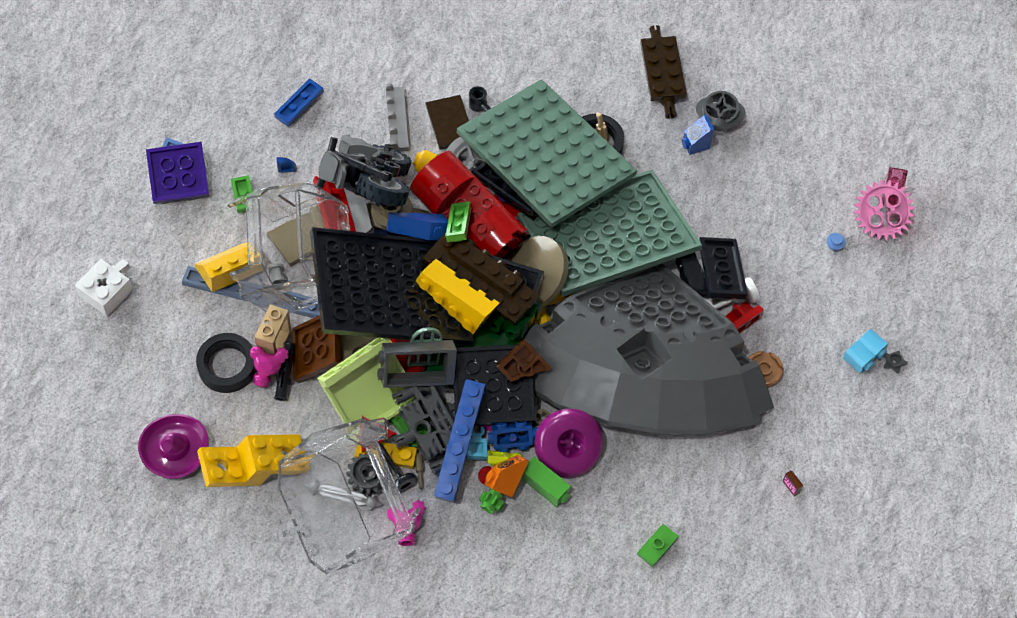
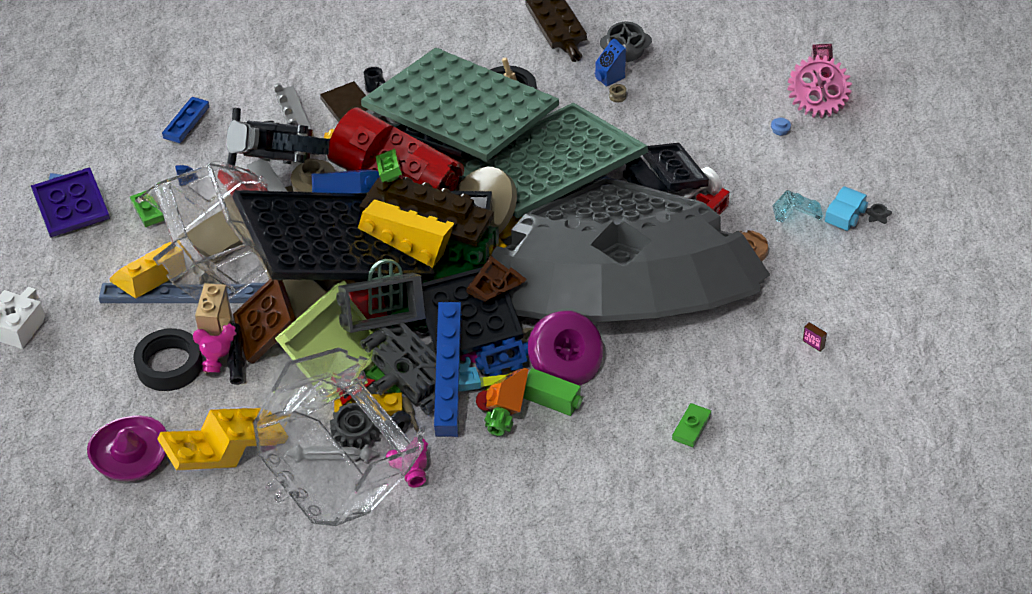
camera: 10 degrees left, 15 degrees down
(694, 162) = (617, 93): none -> dark tan bush
(821, 335) = (794, 201): none -> clear light blue bracket

